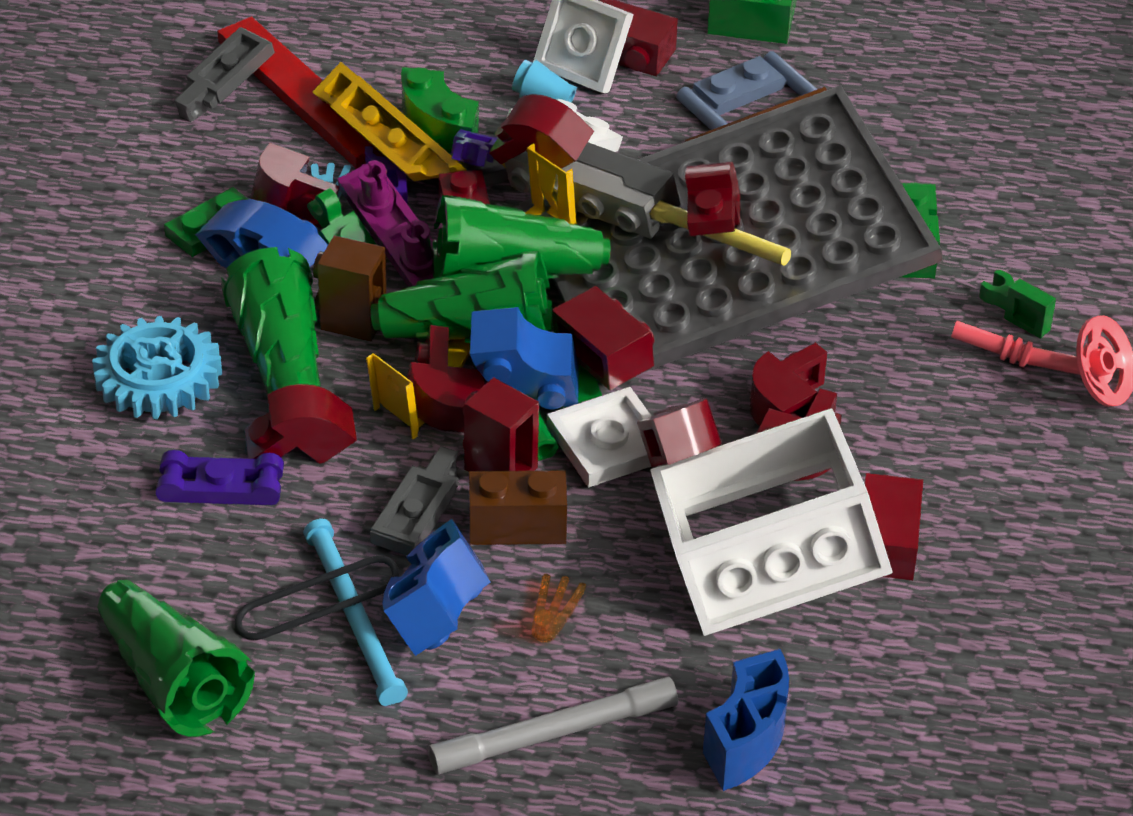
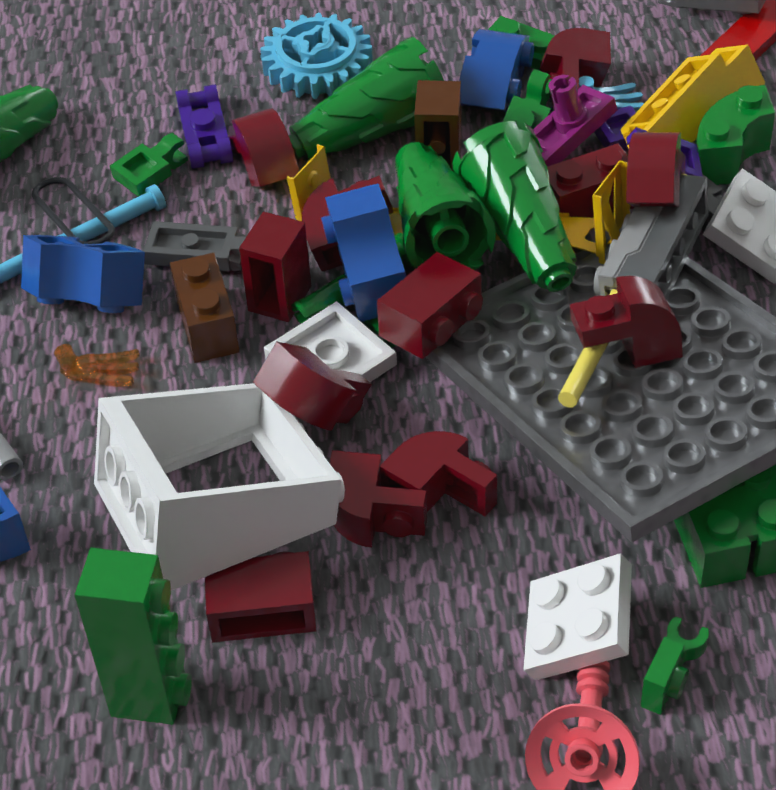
camera: 80 degrees right, 5 degrees up
(270, 531) = (149, 166): none -> green plate
(968, 335) = (578, 617): none -> white plate
(973, 562) = (133, 635): none -> green brick

